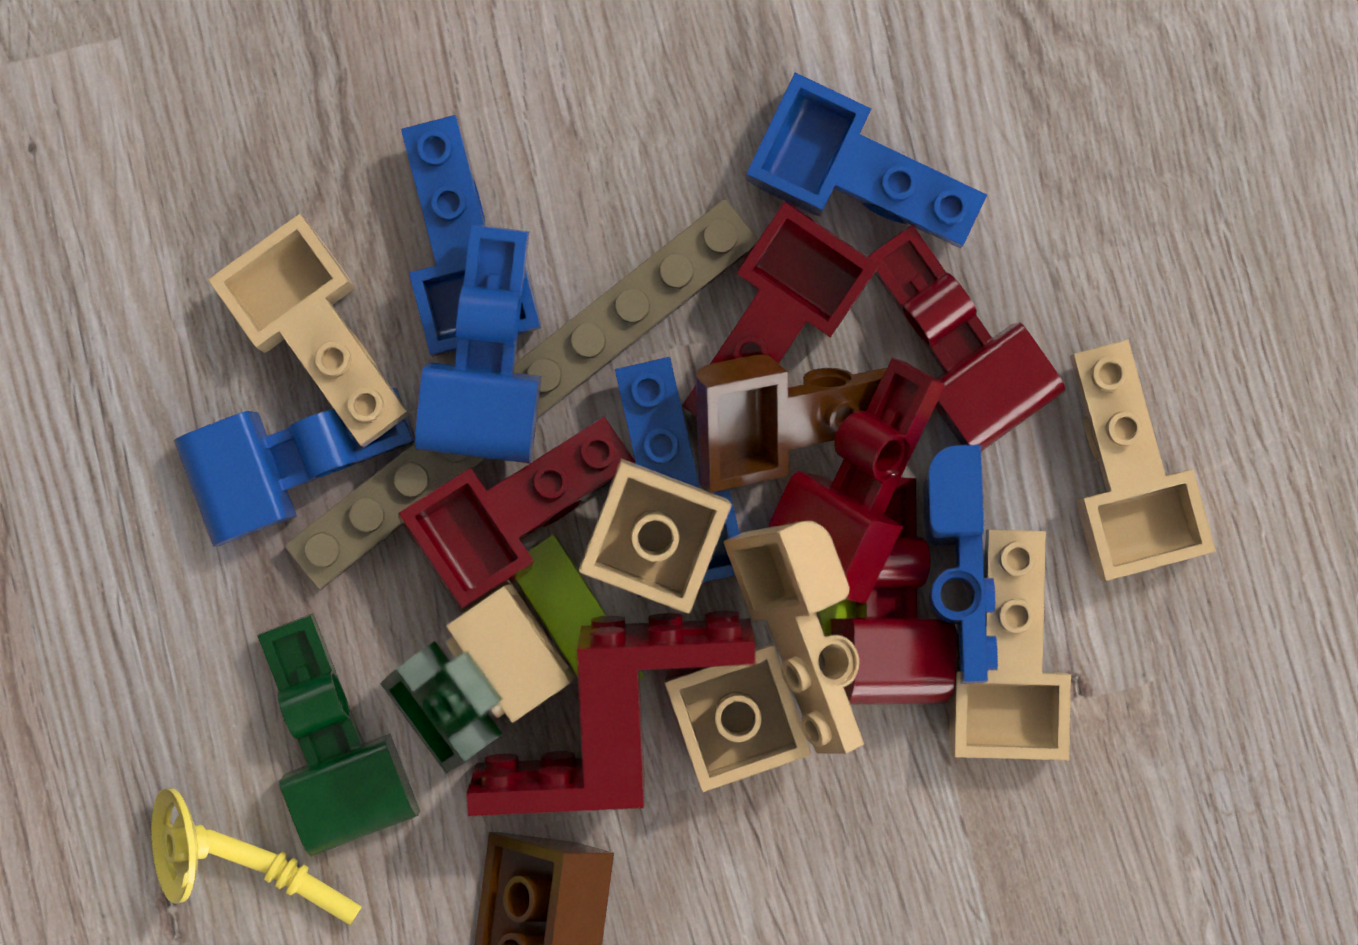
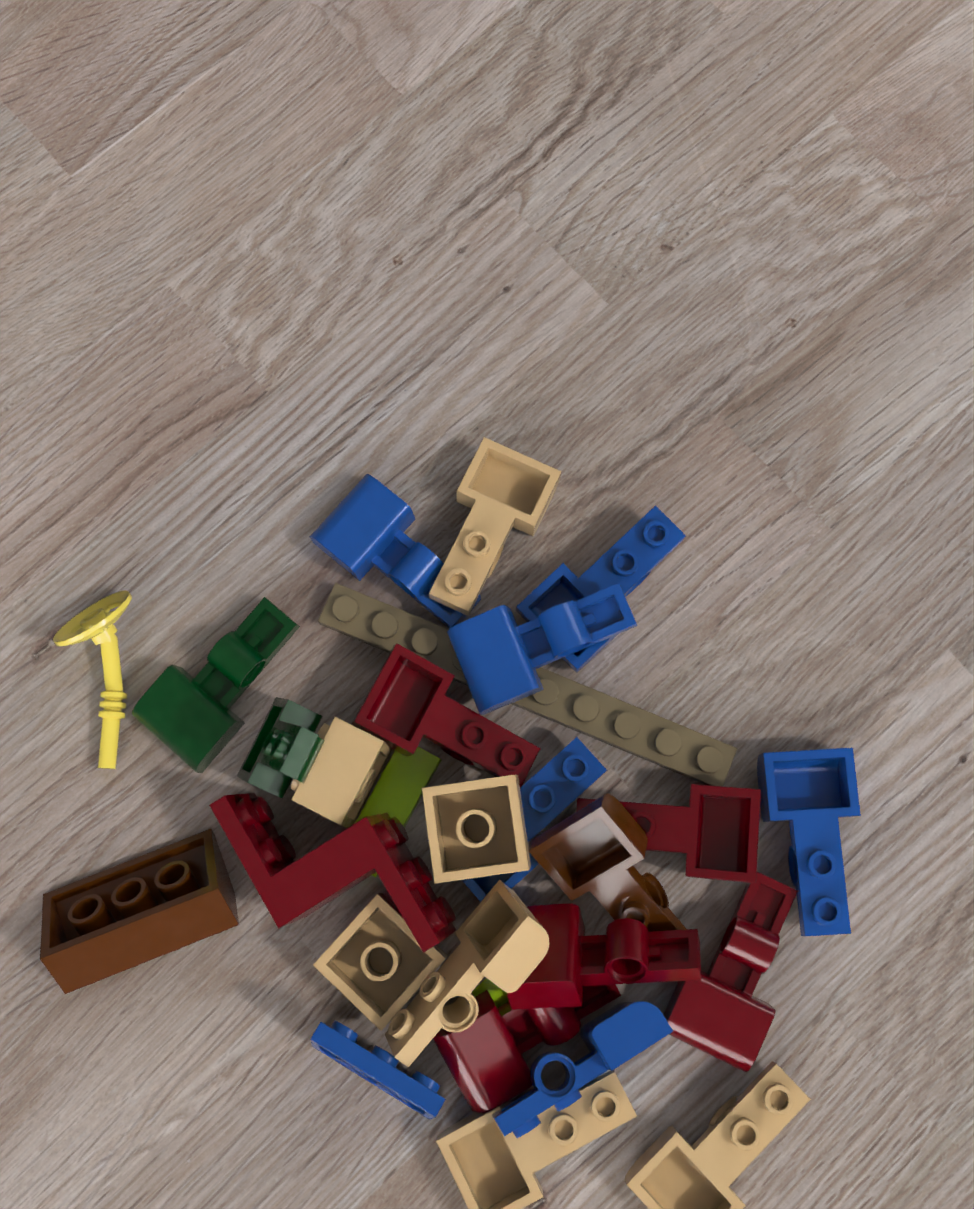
camera: 65 degrees right, 10 degrees down
(849, 779) = (378, 1068): none -> blue plate

